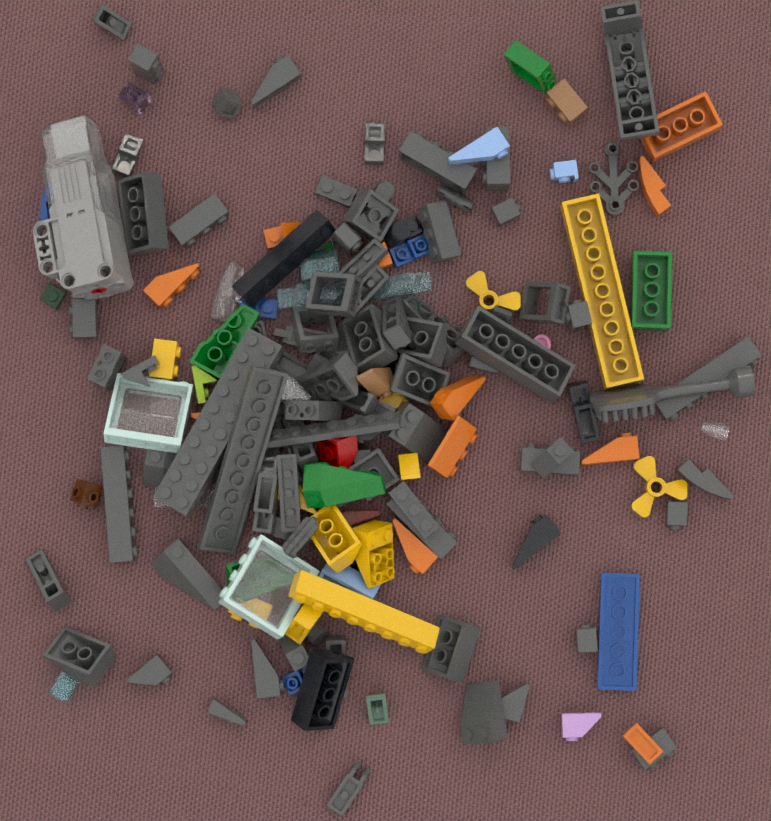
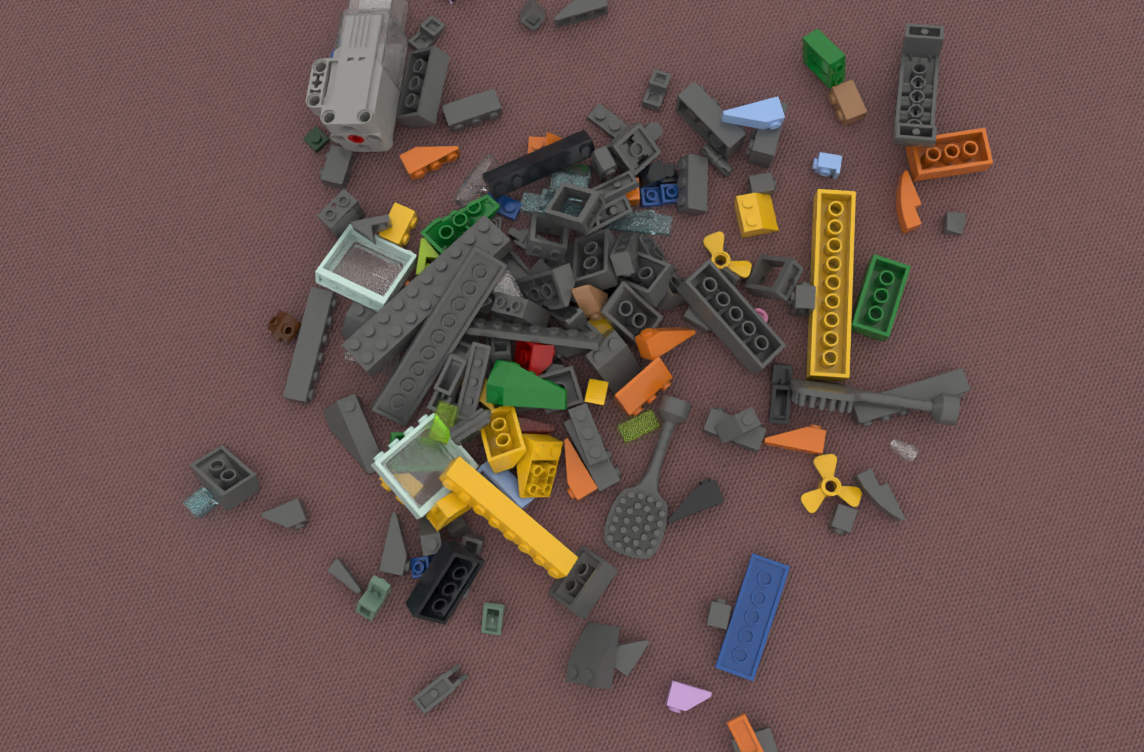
camera: 20 degrees right, 5 degrees down
(48, 580) = (221, 398): dark grey slope -> none
(259, 725) = (373, 598): none -> sand green brick
(273, 541) = (442, 422): none -> clear neon green tile
(458, 485) = (638, 426): none -> clear neon green tile
(484, 567) = (639, 513): none -> dark grey piece
(509, 242) = (755, 214): none -> yellow slope
(613, 181) = (871, 188): dark grey plant -> none
(702, 193) = (953, 223): none -> dark grey slope

